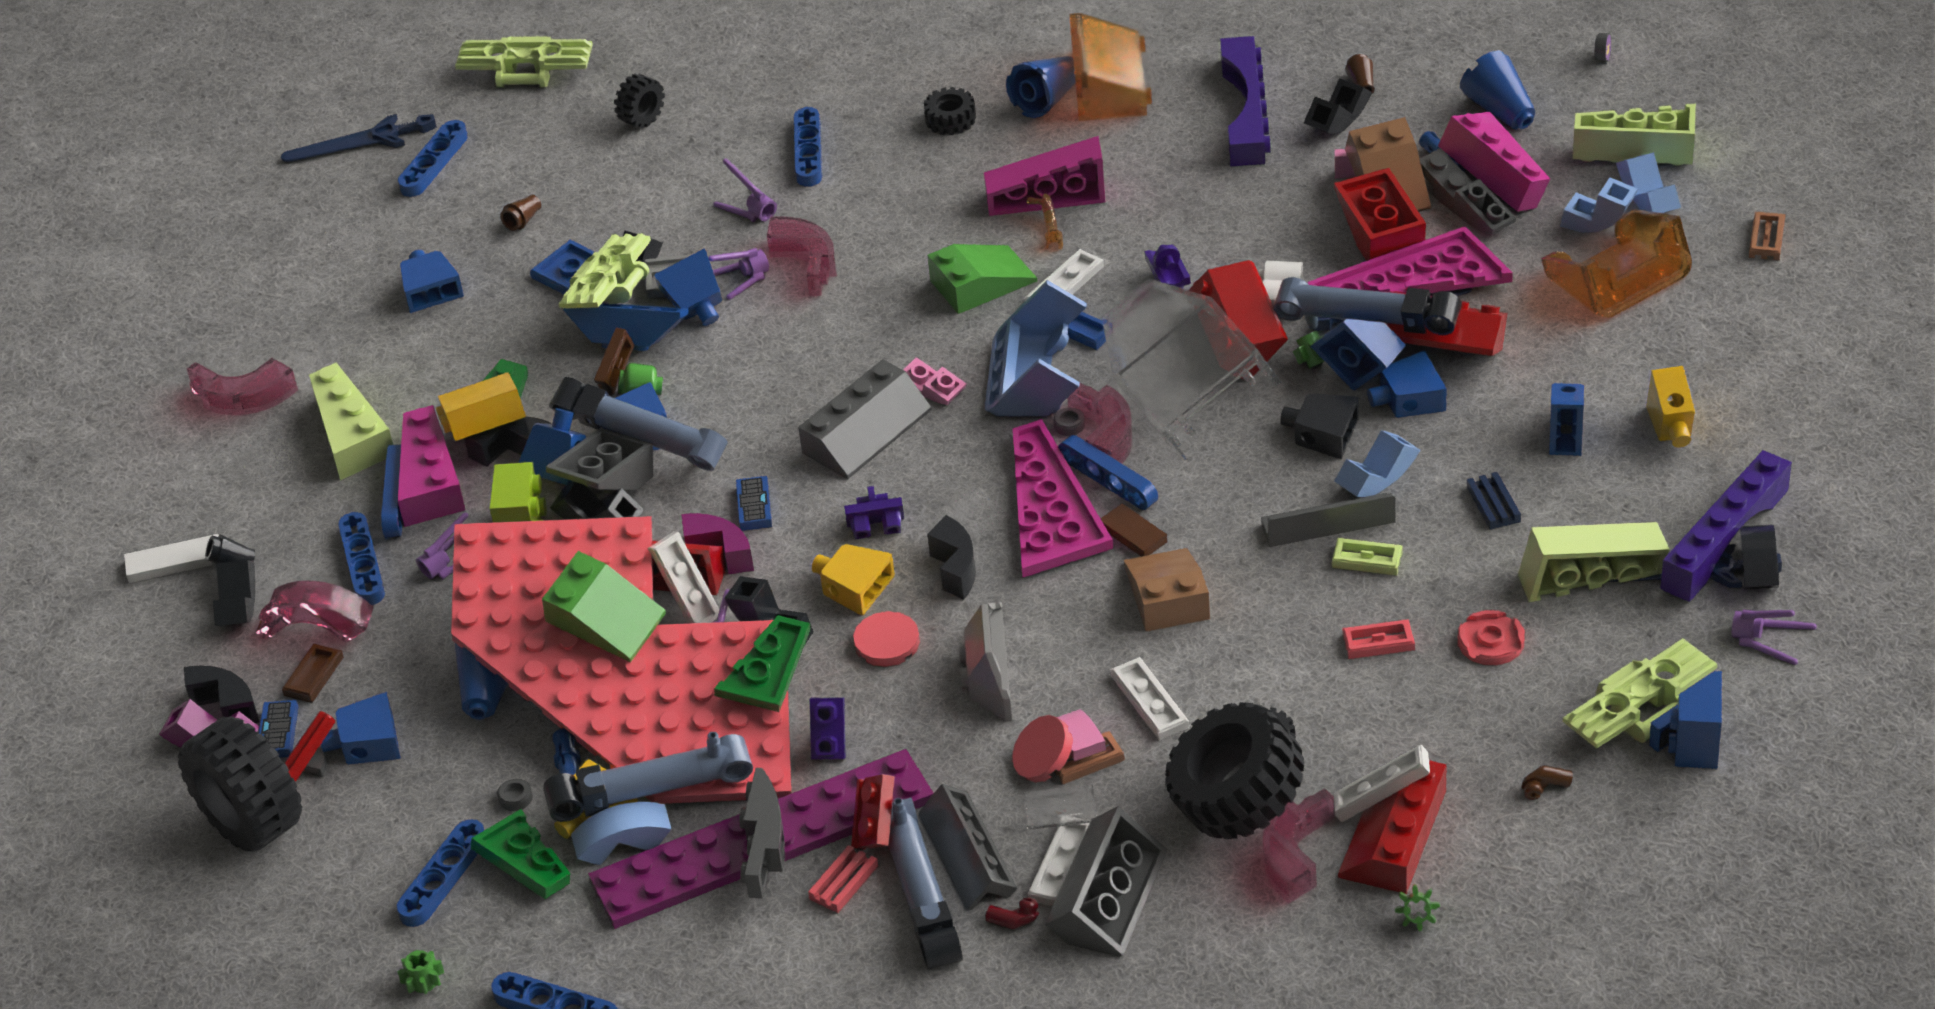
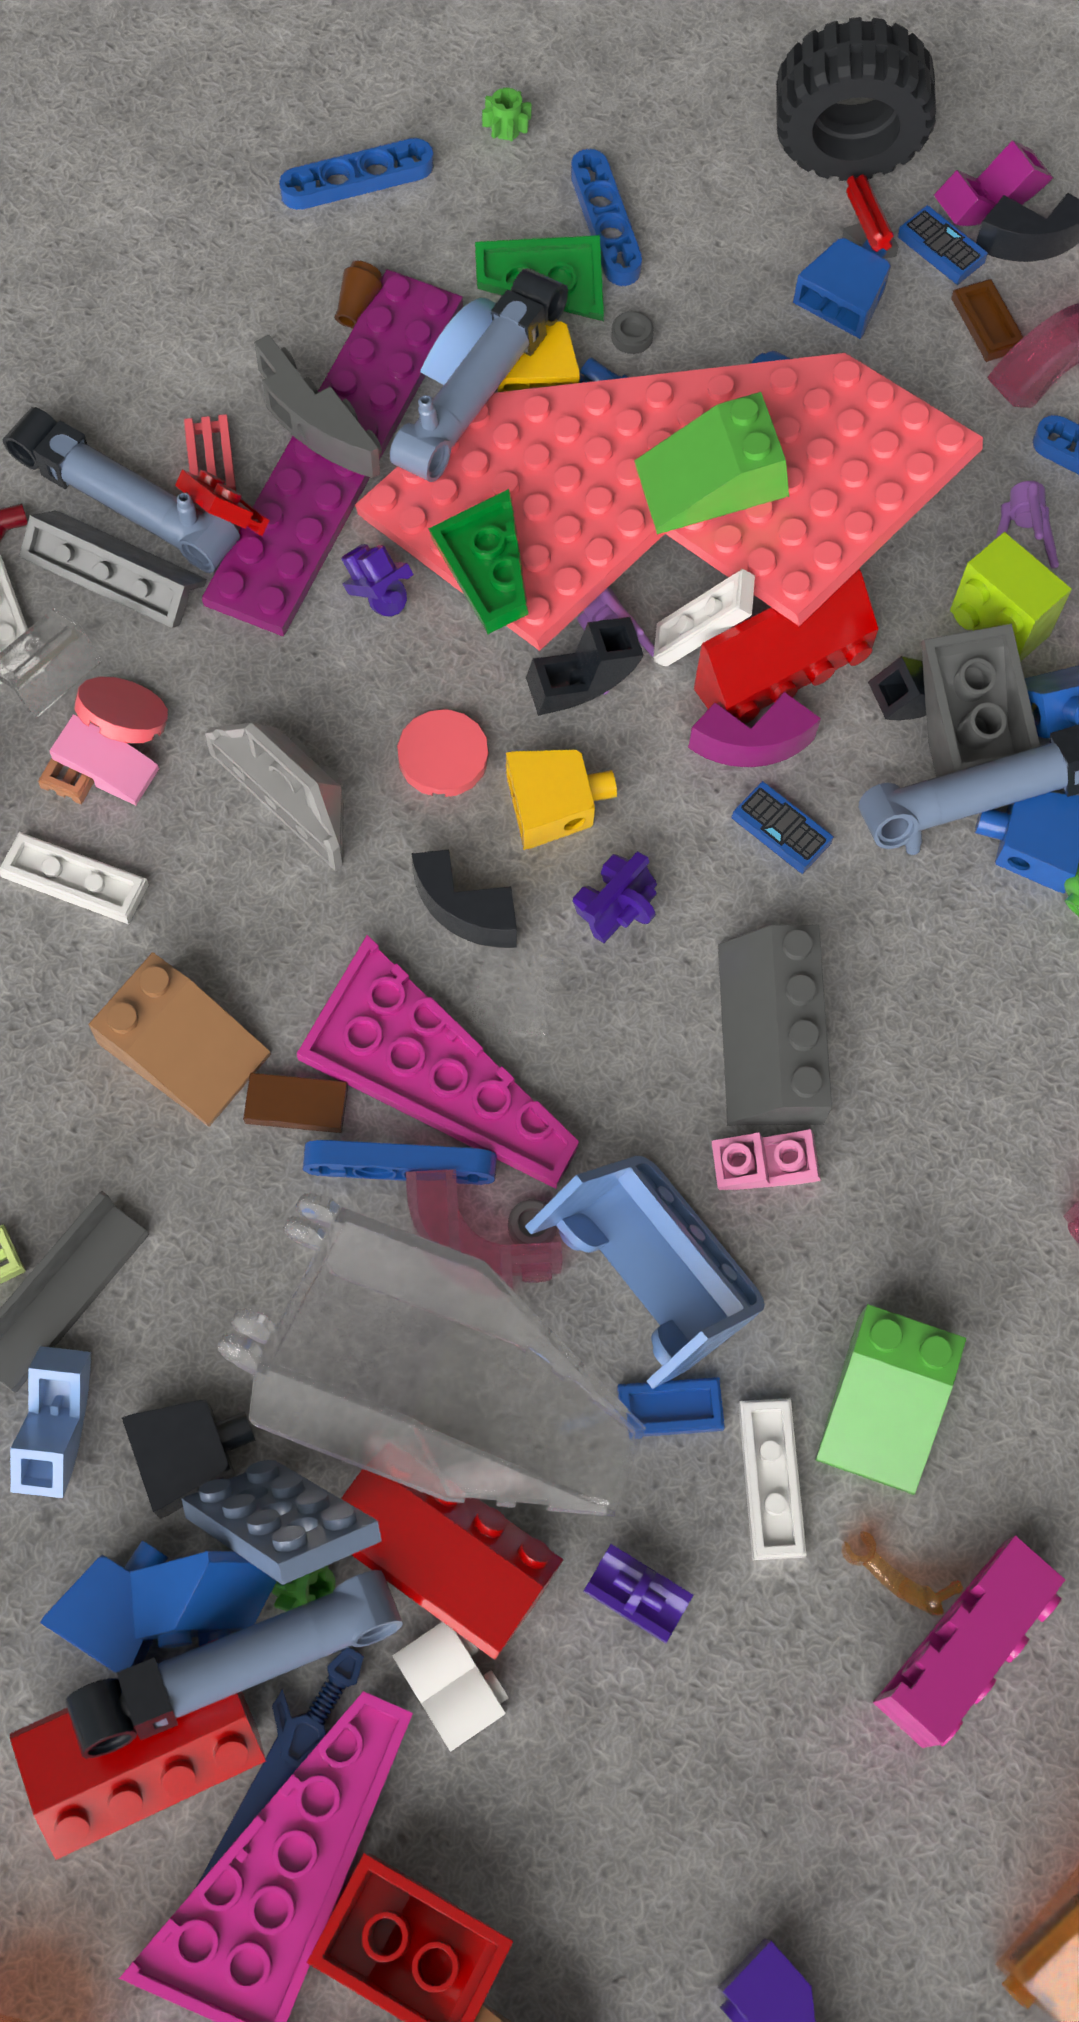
camera: 130 degrees right, 25 degrees up
(647, 916) = (358, 289): none -> reddish brown cone
(1282, 330) = (280, 1520): none -> sand blue plate

